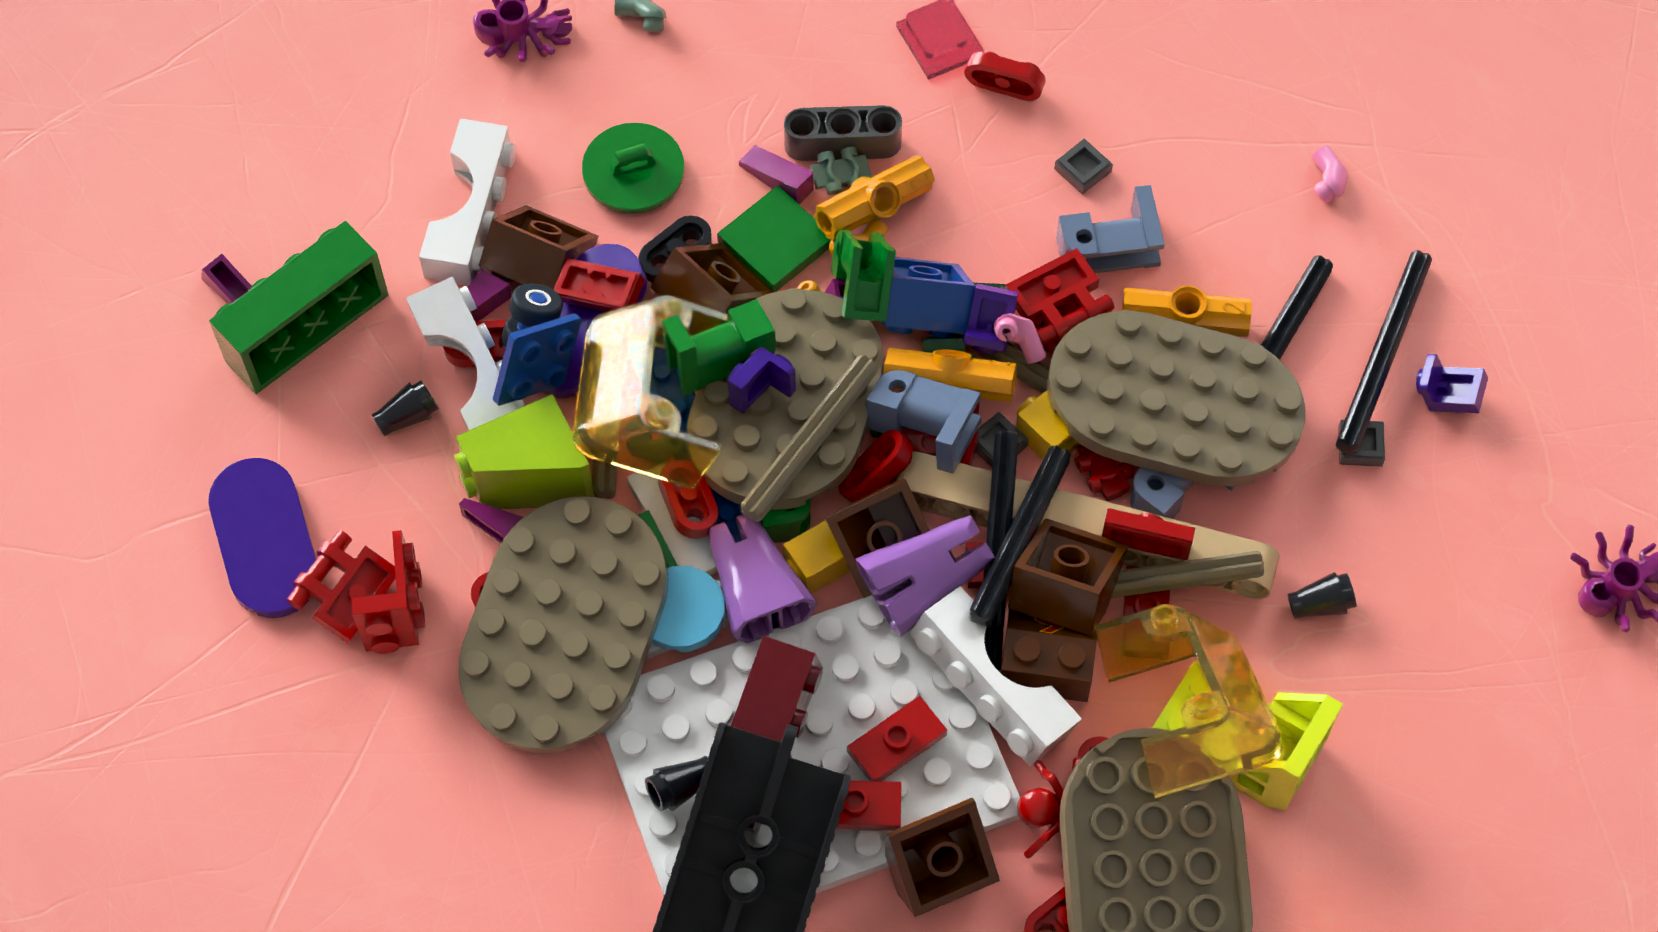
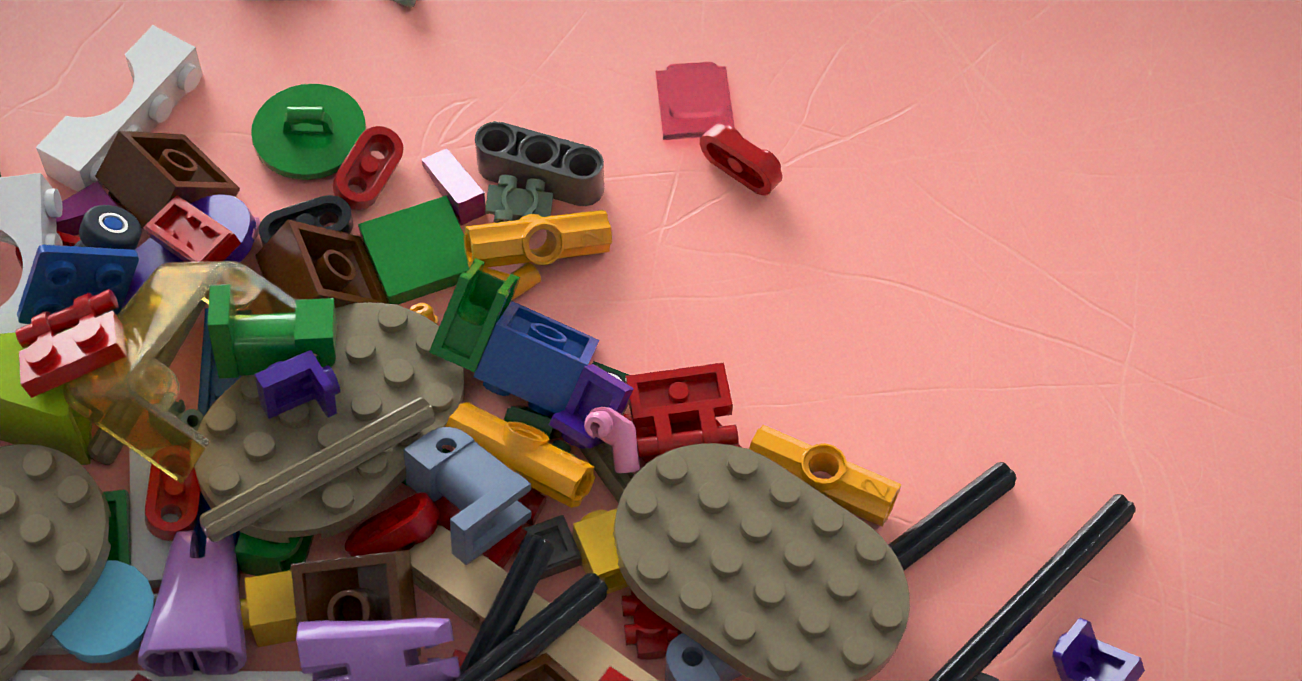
camera: 20 degrees right, 5 degrees down
(576, 411) = (62, 357): none -> red plate
(702, 186) = (366, 170): none -> red plate
(1083, 166) = (785, 281): dark grey tile -> none
(1115, 243) = (778, 373): sand blue piece -> none
(1334, 174) = (1061, 381): bright pink arm -> none

